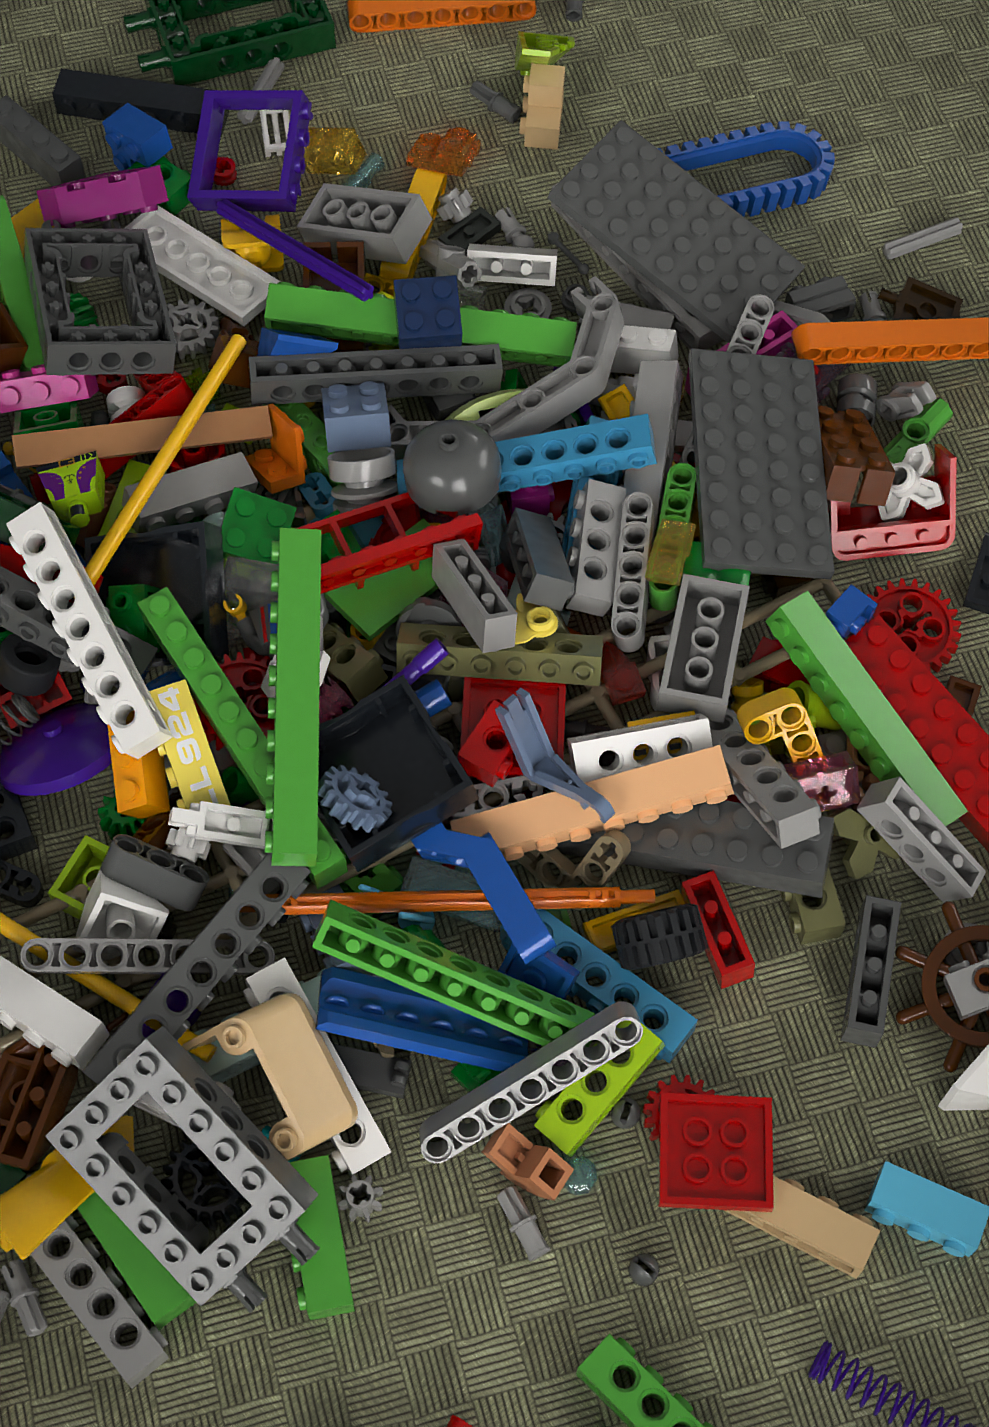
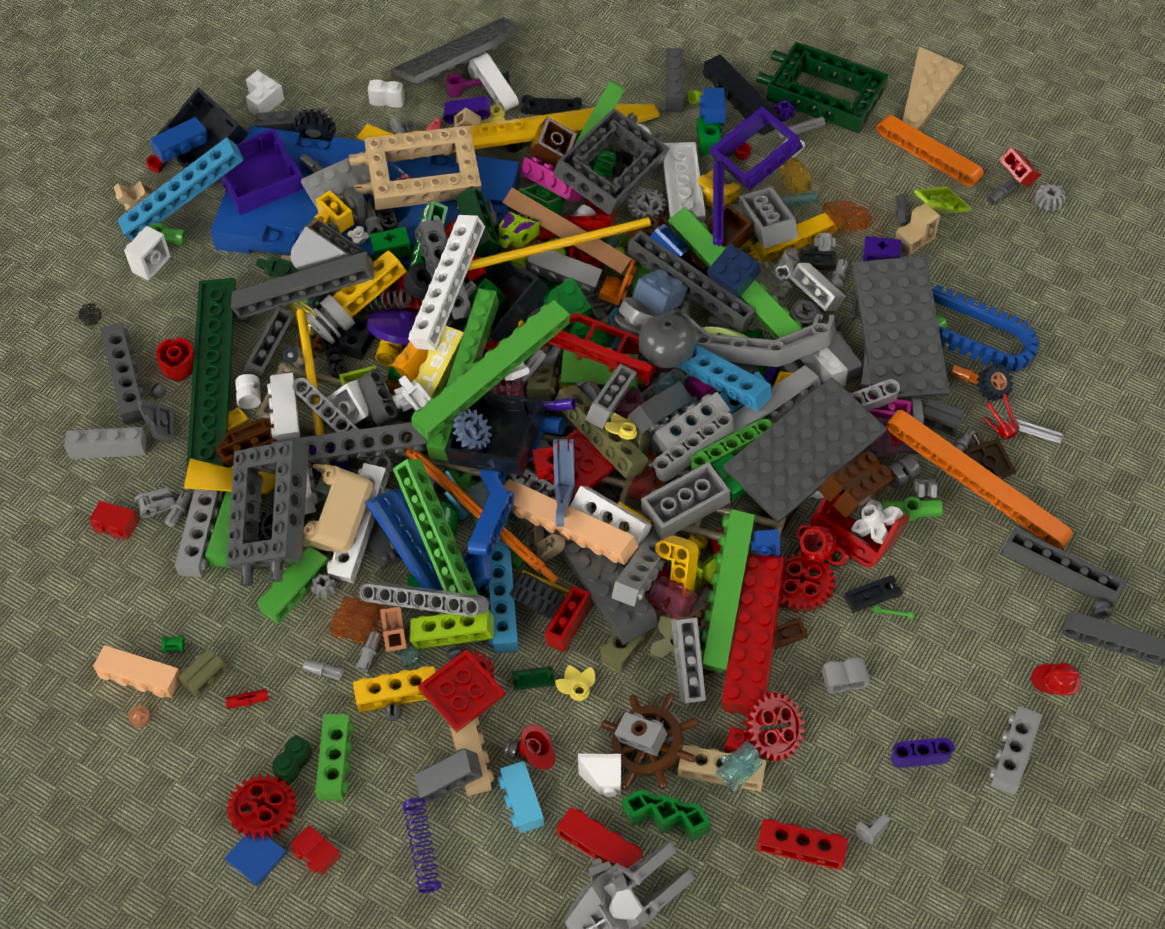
camera: 50 degrees right, 5 degrees down
(74, 805) = (388, 352): none -> yellow wheel
(80, 148) = (694, 96): none -> lime hinge
(93, 291) = (622, 160): none -> black bracket
(103, 196) = (668, 120): magenta brick -> none
(218, 79) = (784, 110): none -> dark purple gear
(454, 1200) = (355, 619): none -> clear orange plate
(493, 1309) = (323, 669): none -> light grey axle
(530, 166) = (881, 248): none -> dark purple brick
(593, 1289) = (405, 694): none -> yellow brick
(669, 552) = (713, 446): clear yellow slope -> none
(757, 1046) = (533, 678): none -> dark green hinge
(790, 233) = (964, 374): none -> orange axle
(807, 997) = (575, 681): none -> light yellow plate
(826, 1276) = (448, 775): none -> dark grey brick
(829, 217) = (997, 376): none -> black wheel
(842, 1160) = (511, 748): none -> dark grey bush
(871, 971) = (609, 691): dark grey brick -> none
(875, 1130) = (537, 747): none -> red piece
(882, 565) = (820, 544): none -> red beam
(899, 258) = (1007, 429): none -> red plant

